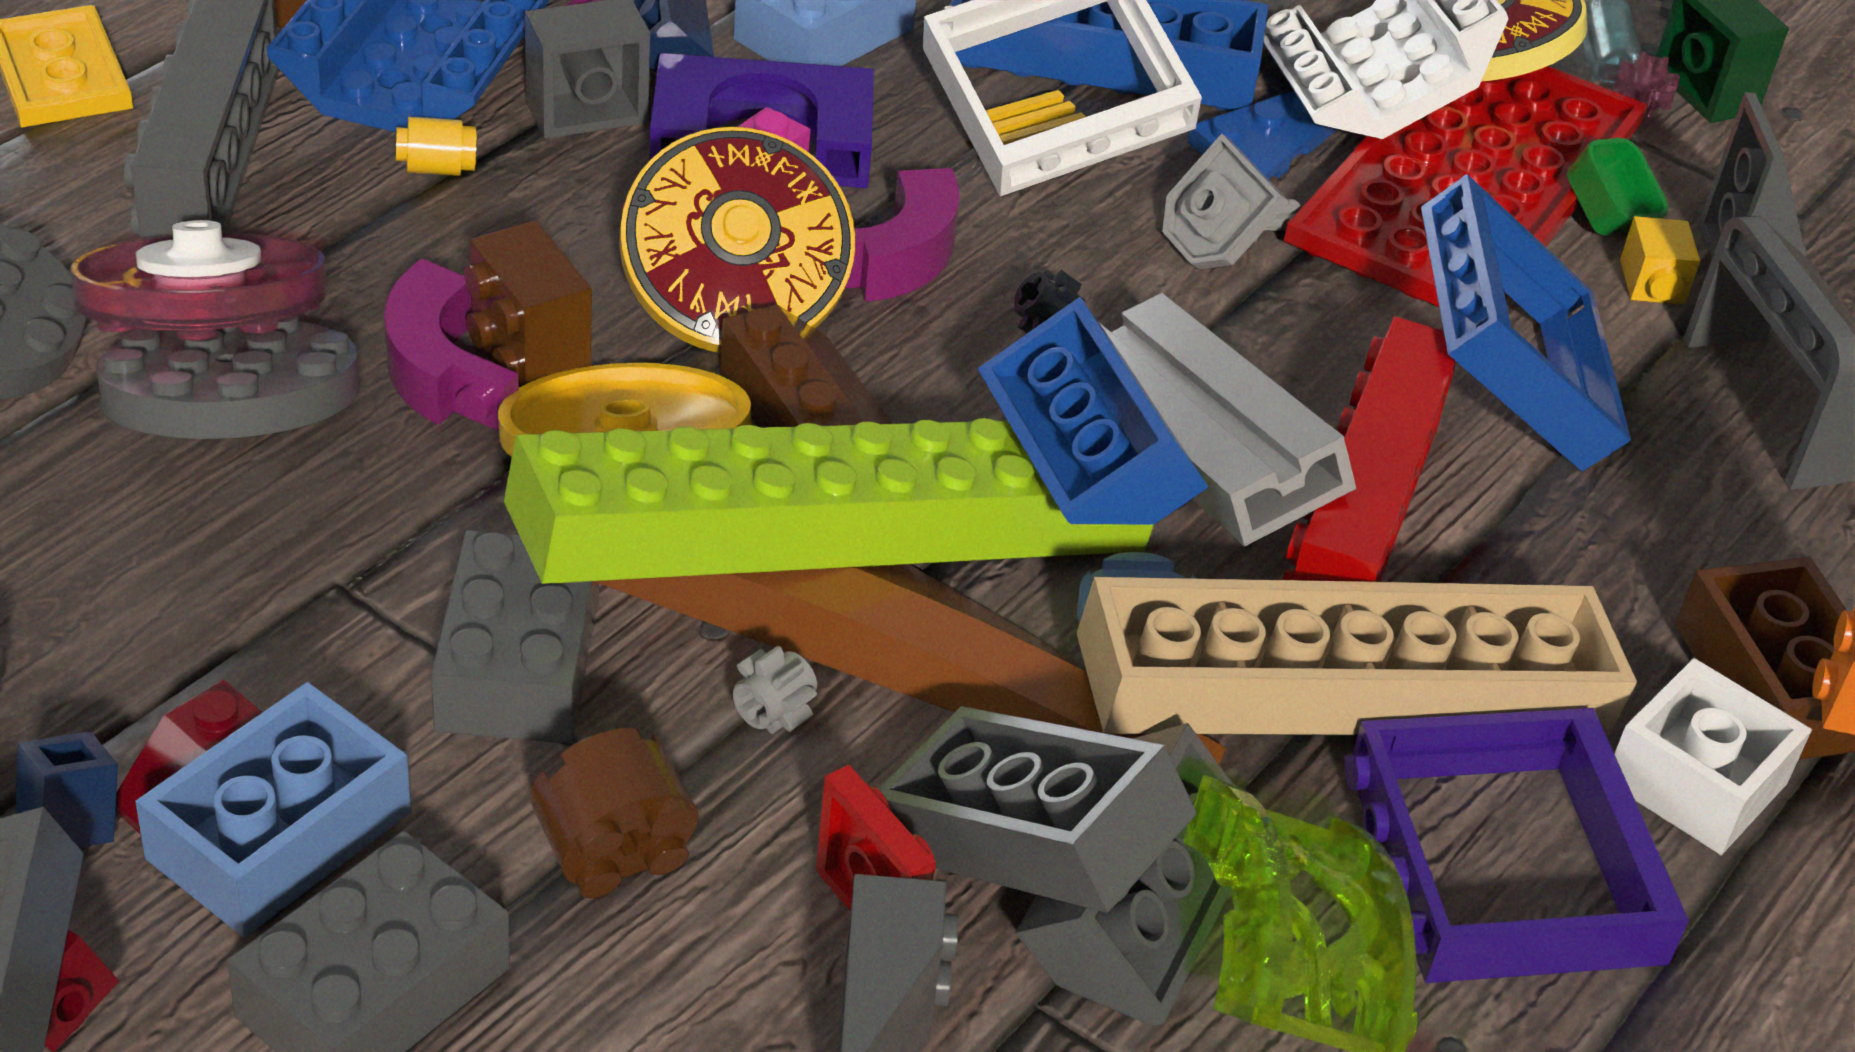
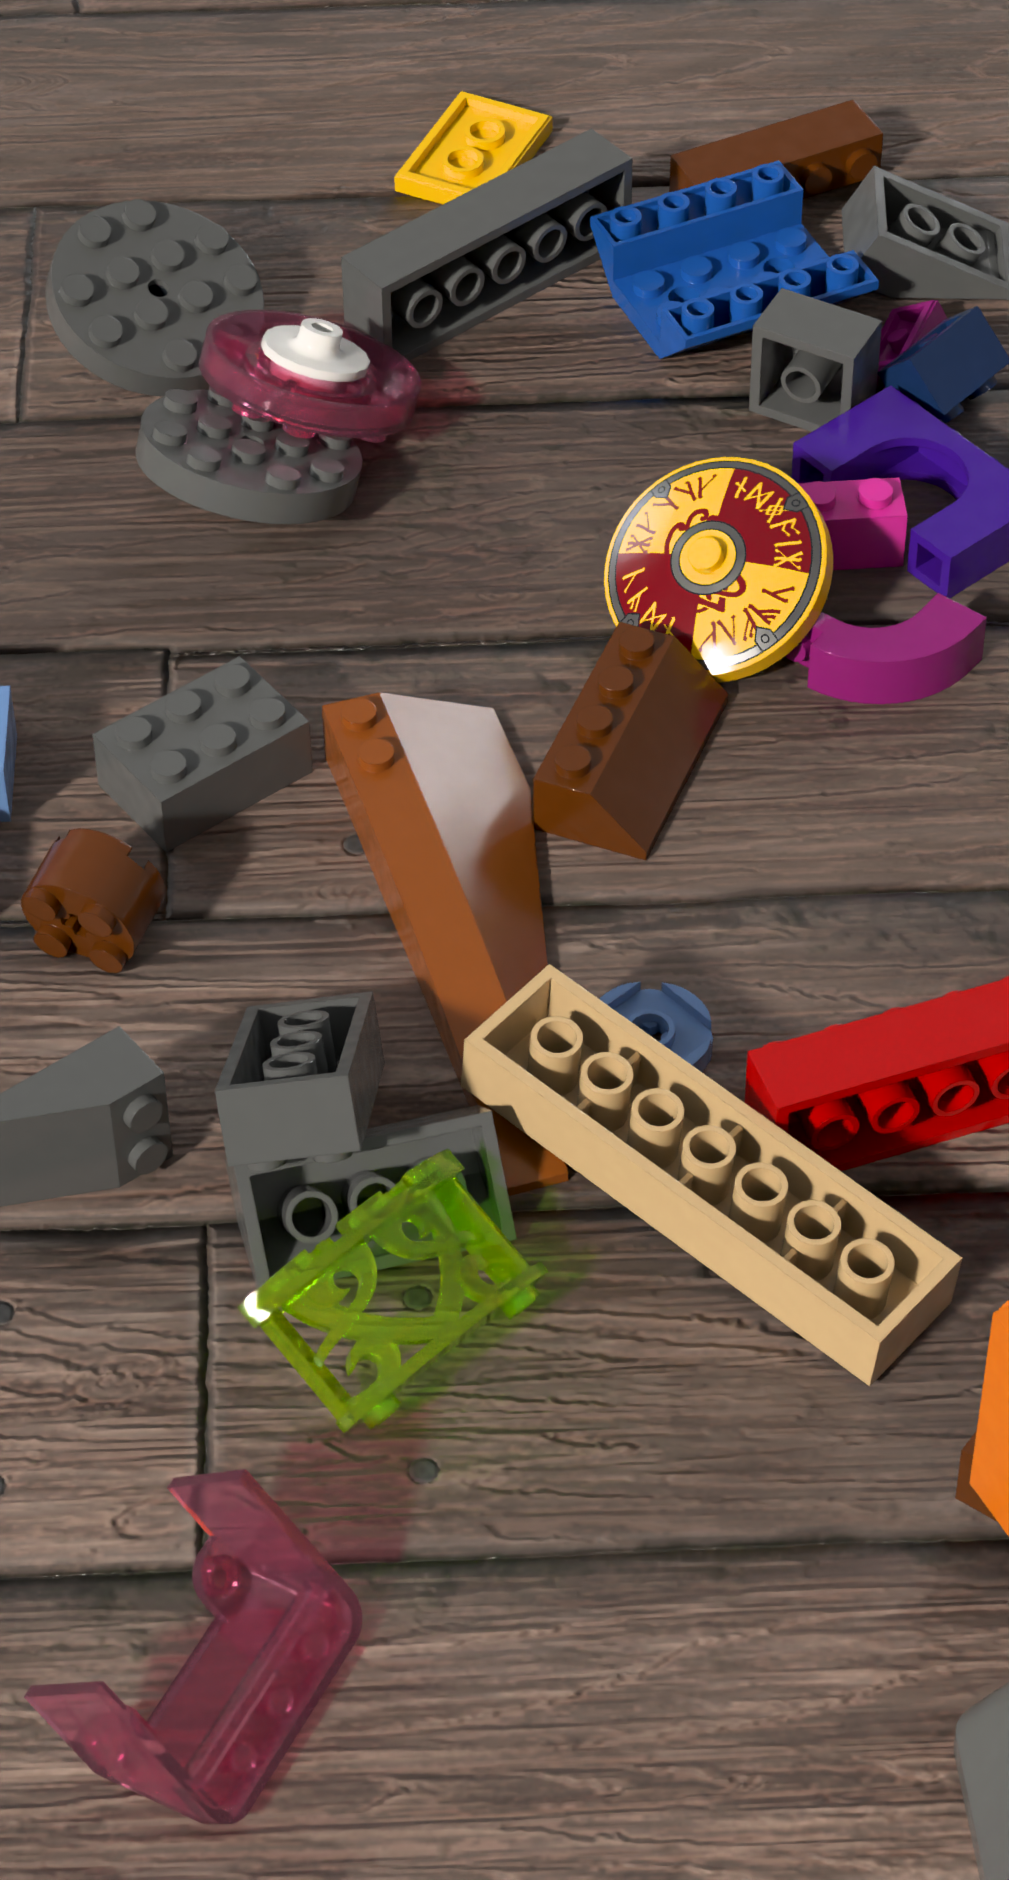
camera: 55 degrees right, 5 degrees up
(427, 370) = (423, 506): magenta arch -> none
(436, 146) = (639, 368): yellow brick -> none
(528, 303) = (501, 531): reddish brown brick -> none
(623, 397) = (462, 654): yellow dish -> none
(775, 690) = (308, 903): light grey gear -> none
(787, 500) = (493, 798): lime brick -> none
(864, 837) = (191, 1044): red plate -> none
(1043, 296) = (916, 776): black gear -> none
(1090, 424) = (718, 861): blue slope -> none
(1242, 431) = (844, 924): light grey brick -> none
(1564, 740) = (653, 1251): dark purple window -> none
(1709, 755) = (884, 1442): white brick -> none

